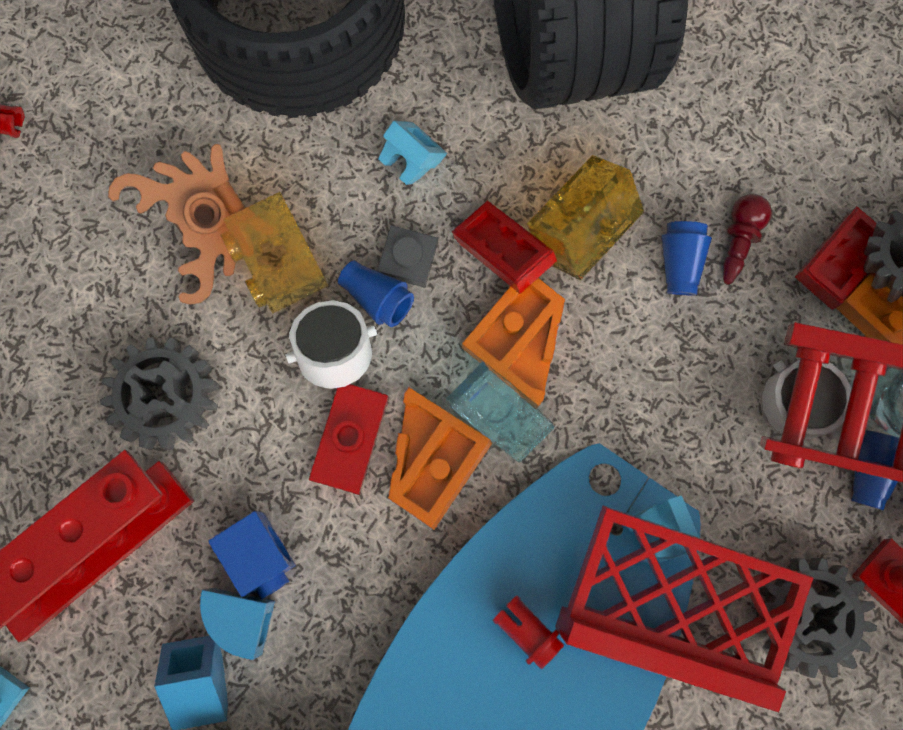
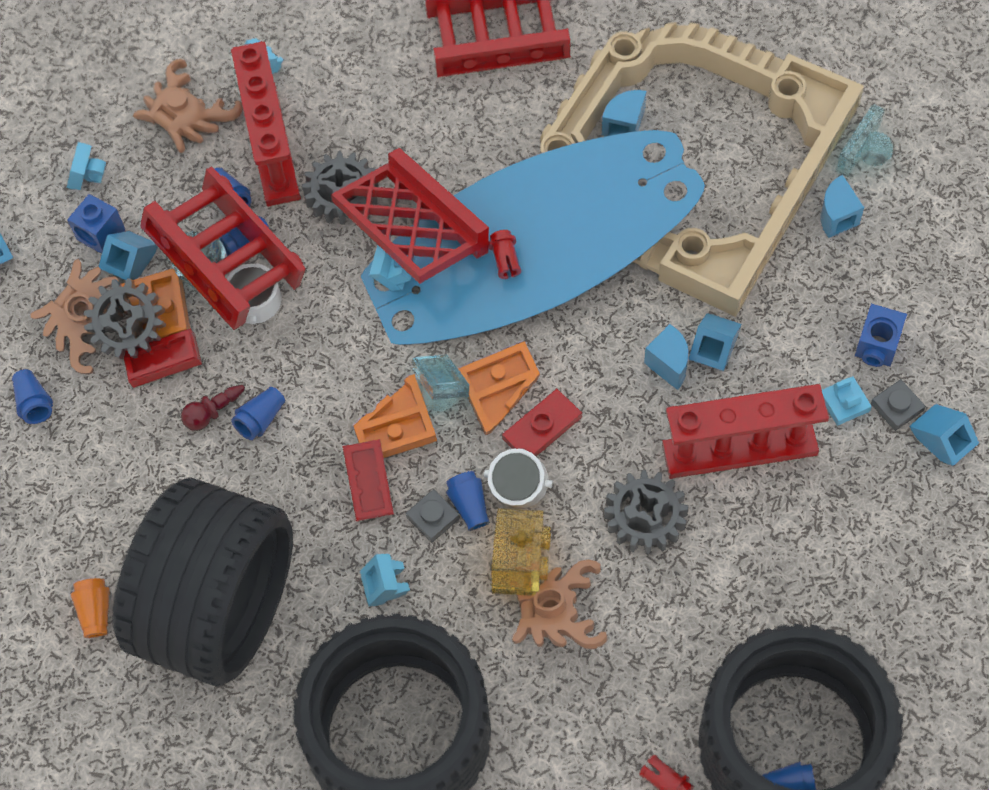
camera: 140 degrees left, 15 degrees down
(253, 556) = (640, 386): blue brick -> none
(588, 215) = (304, 462): clear yellow brick -> none

